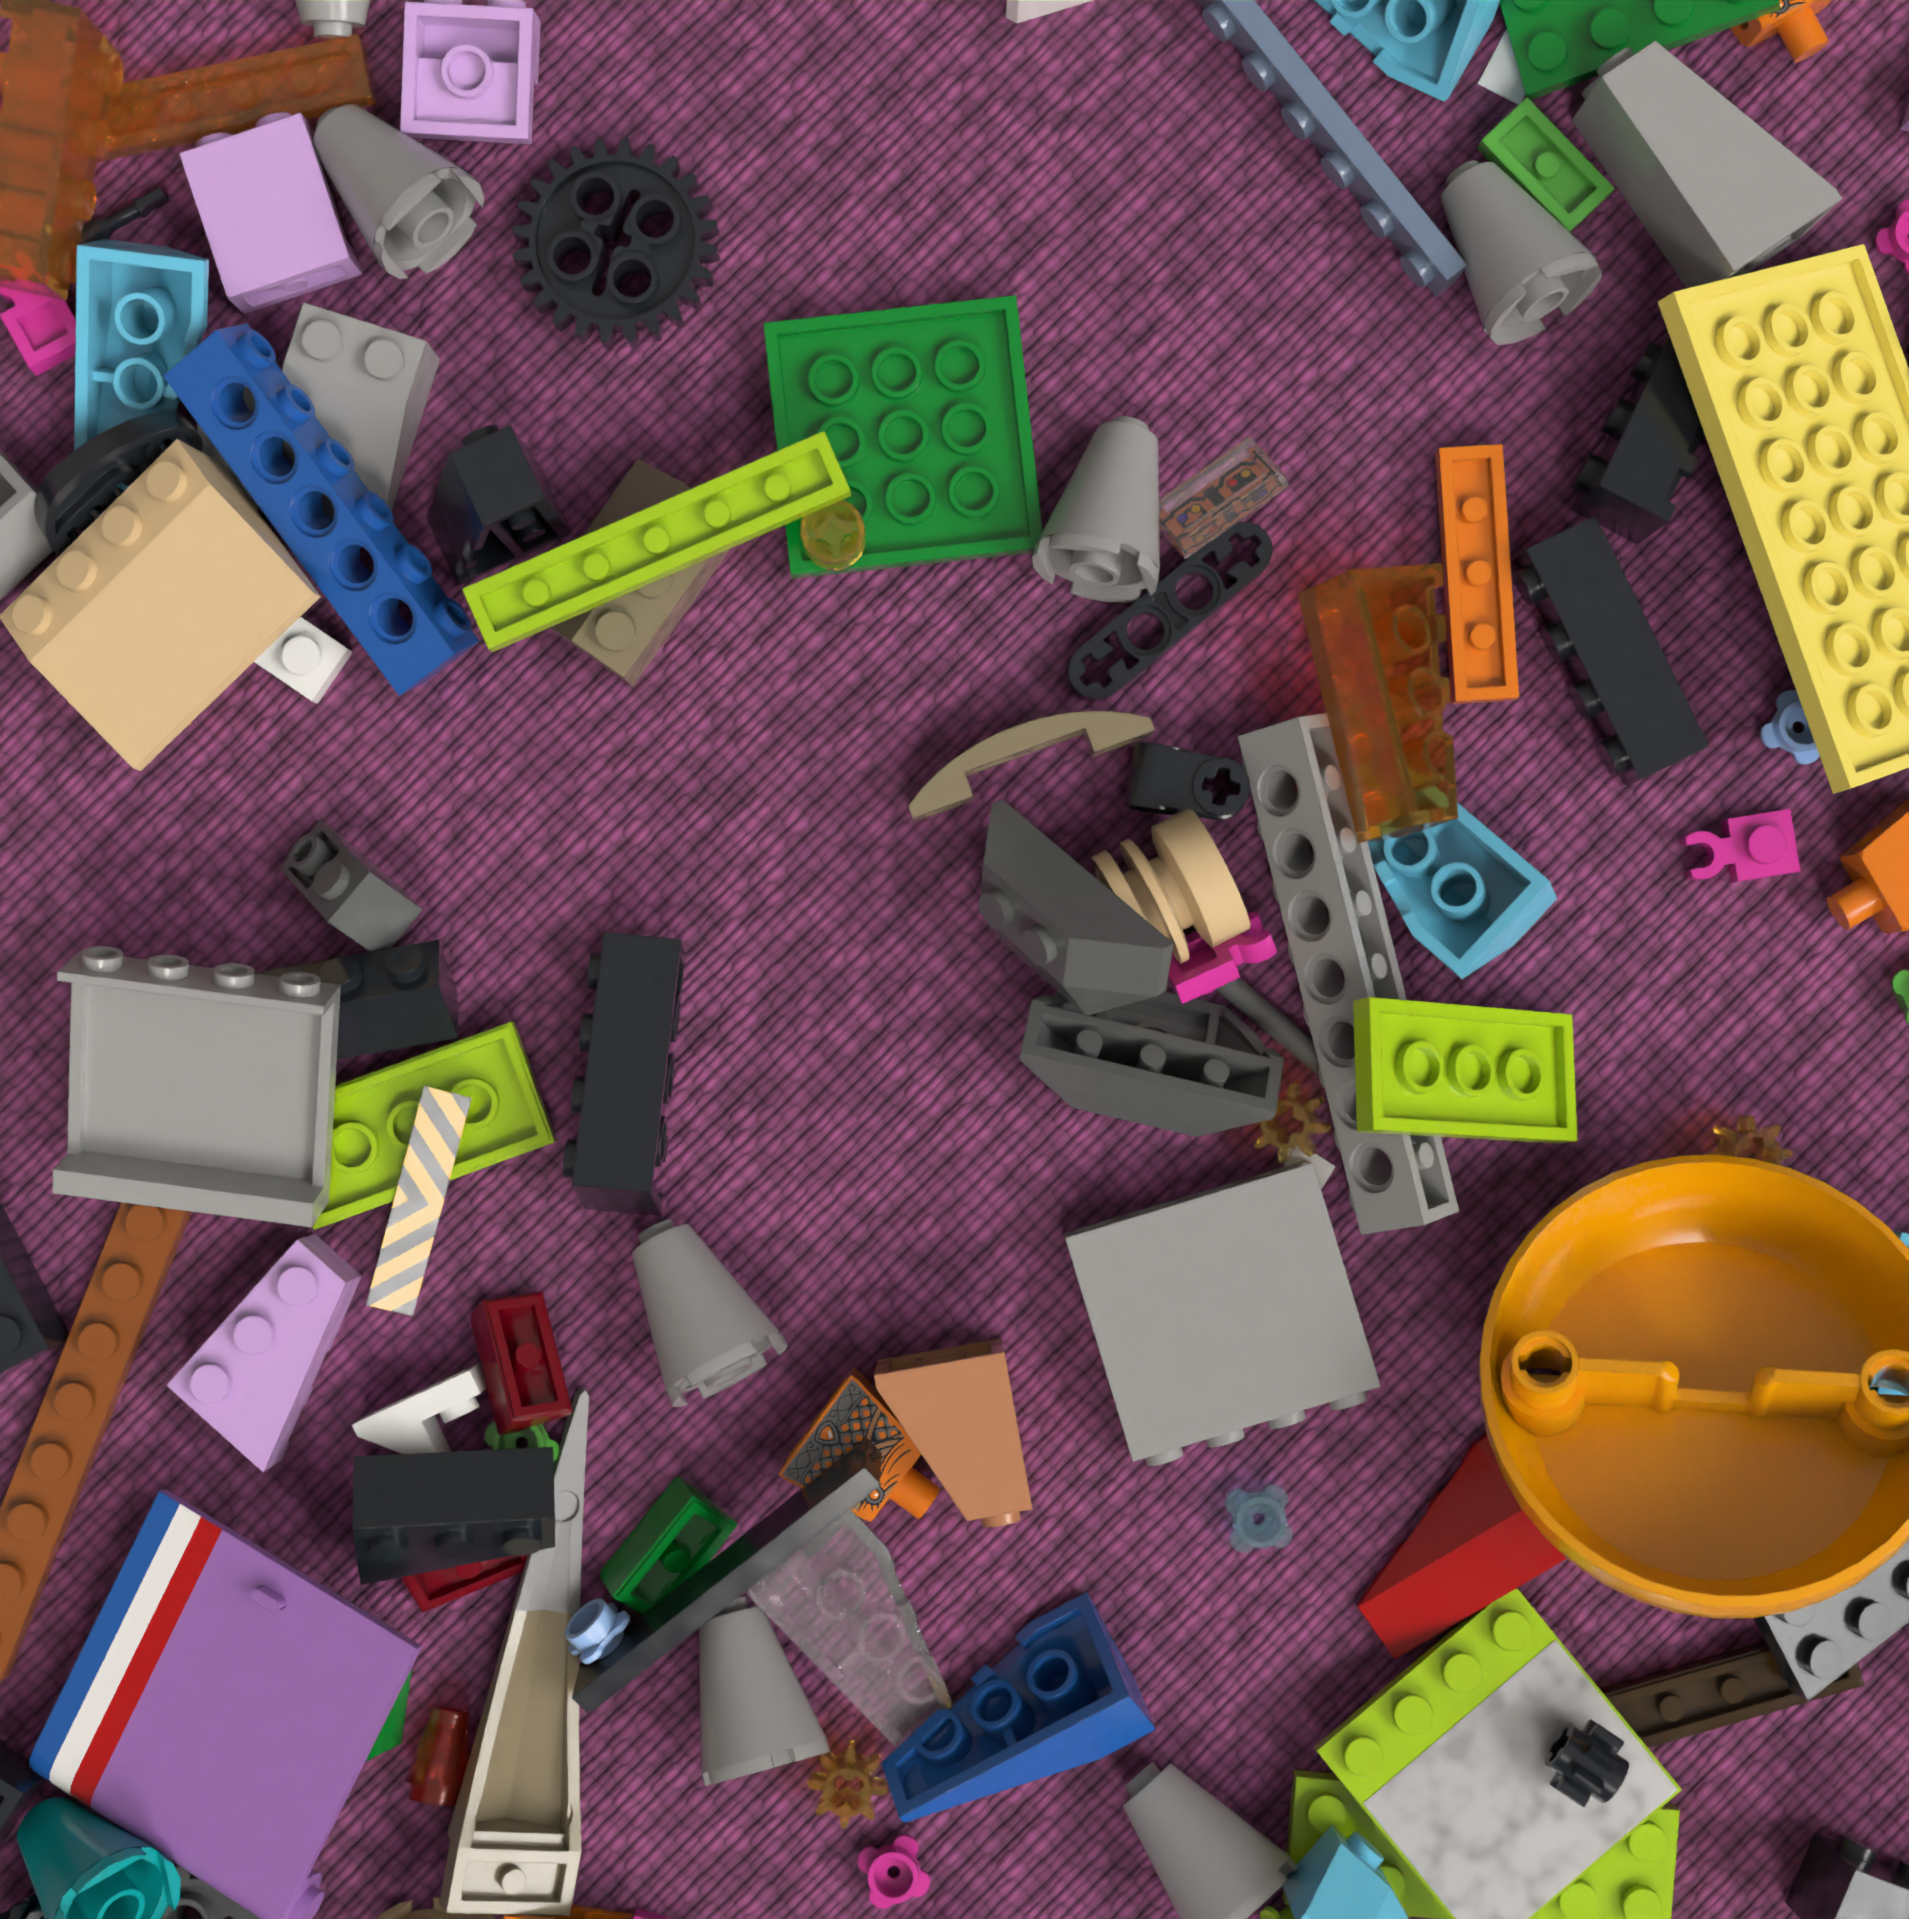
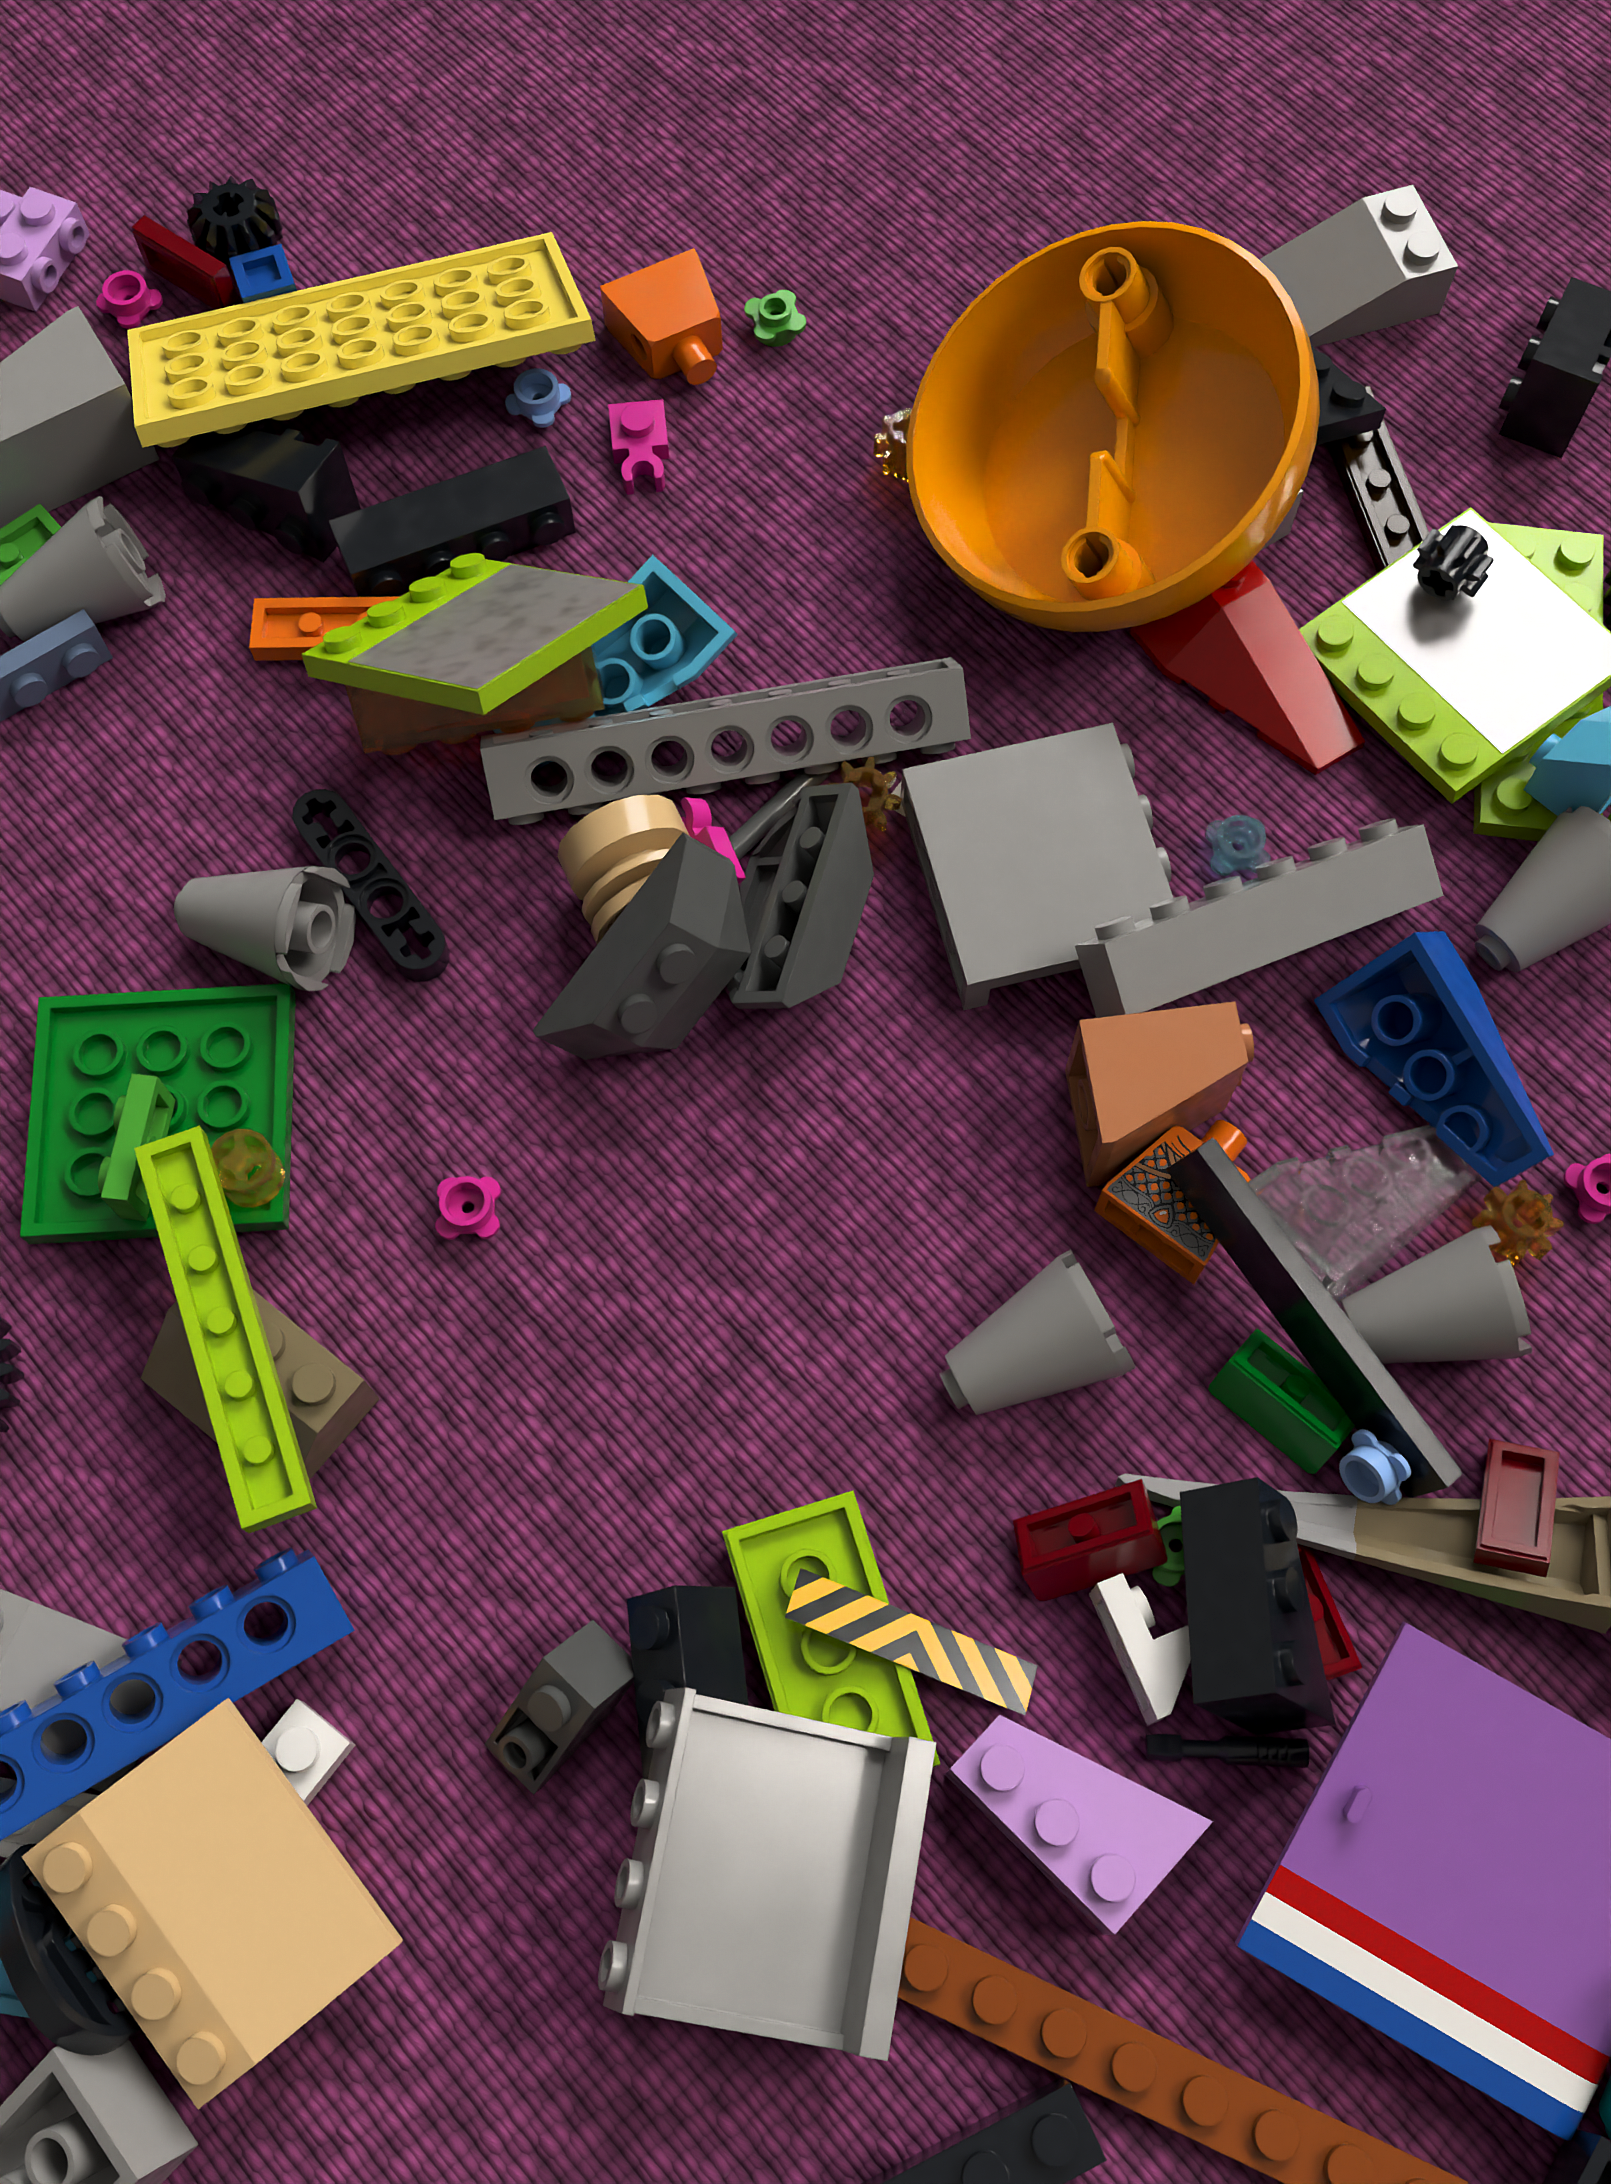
camera: 85 degrees left, 20 degrees down
(342, 1489) = (1231, 1750): none -> black piece
(440, 1758) = (1523, 1647): clear red cone -> none
(492, 504) = (156, 1506): black wedge -> none
(564, 1763) = (1517, 1508): none -> dark red tile
(626, 1073) = (786, 1403): black wedge -> none
(833, 738) = (457, 1192): none -> dark pink plate
(874, 426) = (138, 1119): none -> bright green plate
(1101, 731) = (476, 951): dark tan slope -> none
(1147, 1539) = (1257, 921): none -> light grey brick
(1171, 781) = (531, 879): black piece -> none
(1219, 497) = (263, 825): clear tile -> none
(1425, 701) = (474, 633): none -> plate
(1464, 1071) = (821, 638): lime plate -> none

